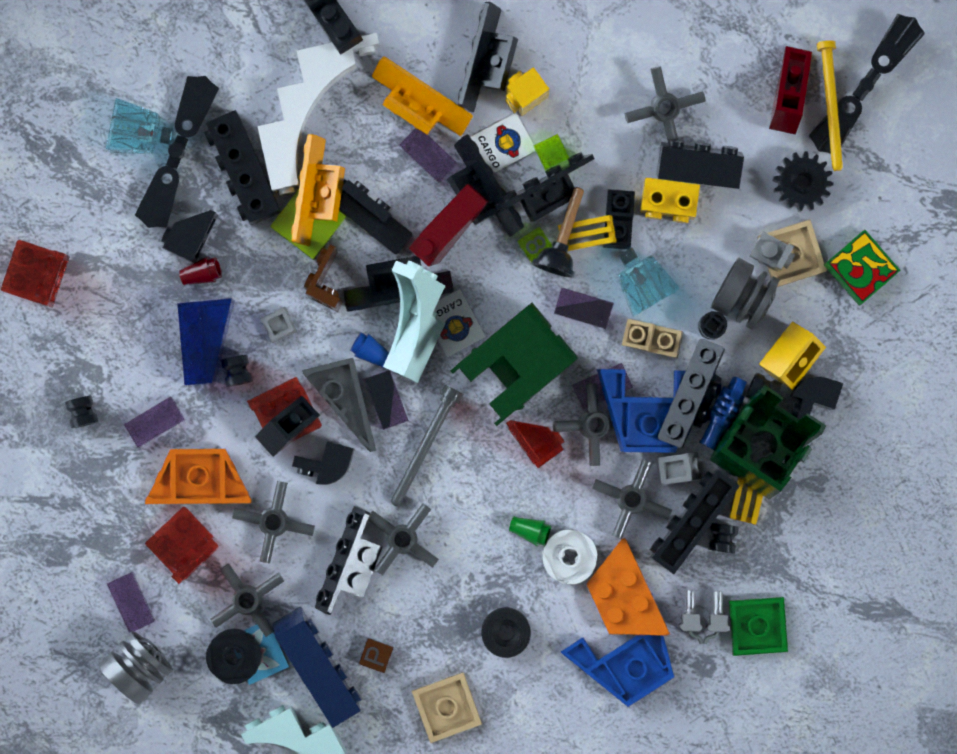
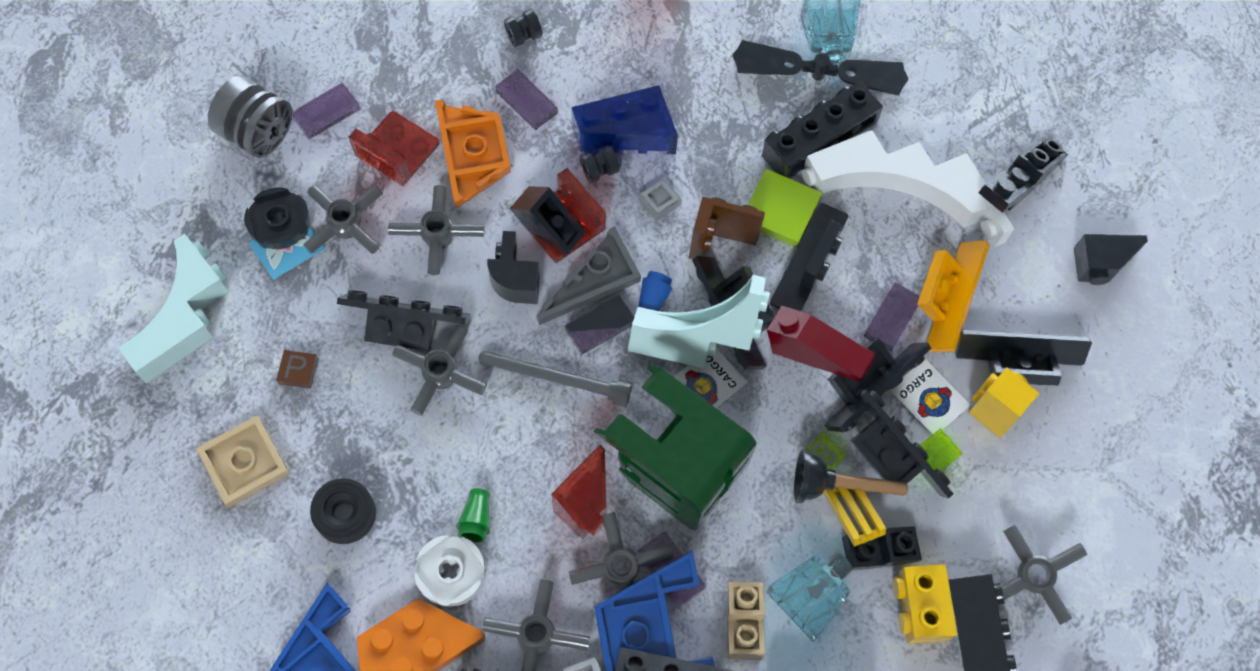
camera: 75 degrees right, 20 degrees down
(189, 235) = (735, 94): black slope -> none
(201, 272) = (699, 113): dark red cone -> none
(316, 667) = (272, 301): dark blue wedge -> none
(318, 191) = (818, 200): light orange bracket -> none
(583, 308) = (761, 528): clear purple tile -> none

